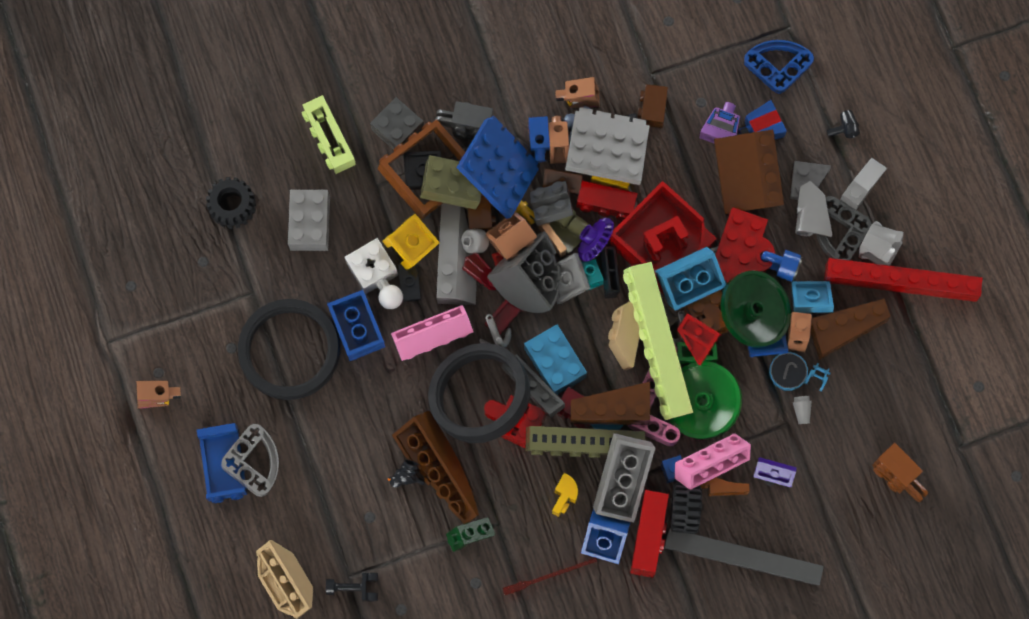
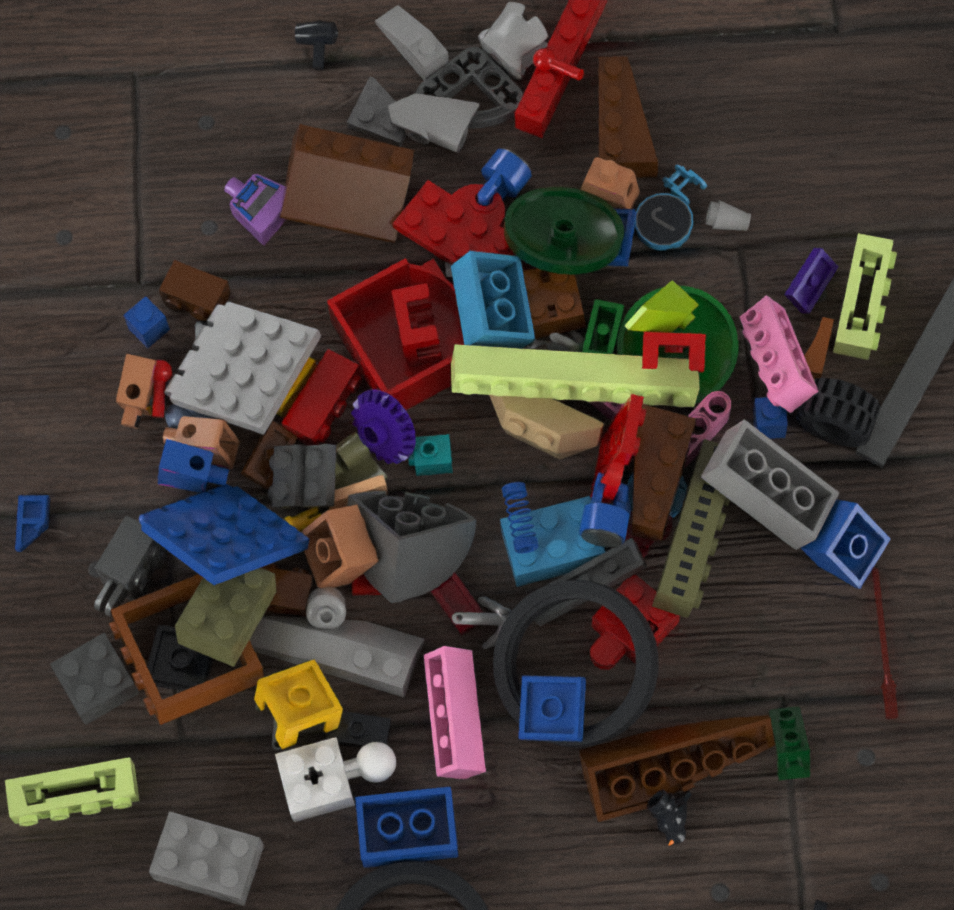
camera: 70 degrees left, 5 degrees down
(446, 386) = (552, 708): none -> blue plate
(478, 269) = (374, 615): dark red piece -> none
(485, 60) = (31, 519): none -> blue tile
(567, 388) = (606, 523): none -> plate
(567, 490) = (761, 579): yellow brick -> none
(572, 280) = (431, 477): light grey tile -> none
(573, 325) = (521, 543): none -> blue piece
(590, 102) = (162, 374): none -> red bar
(606, 272) = (434, 422): black piece -> none
(625, 84) = (146, 322): none -> blue brick
(649, 534) = (865, 475): red brick -> none
(698, 337) = (585, 320): red wing -> none
(700, 402) = (674, 344): none -> red panel
(712, 381) = (664, 311): none -> lime slope
(741, 510) = (874, 252): none -> yellowish green brick
(764, 119) = (272, 145): torso -> none
(777, 75) = (205, 110): blue beam -> none
(812, 296) = (564, 154): dark azure plate -> none
(869, 265) = (545, 60): none -> red bar
(900, 472) = (858, 111): dark orange brick -> none

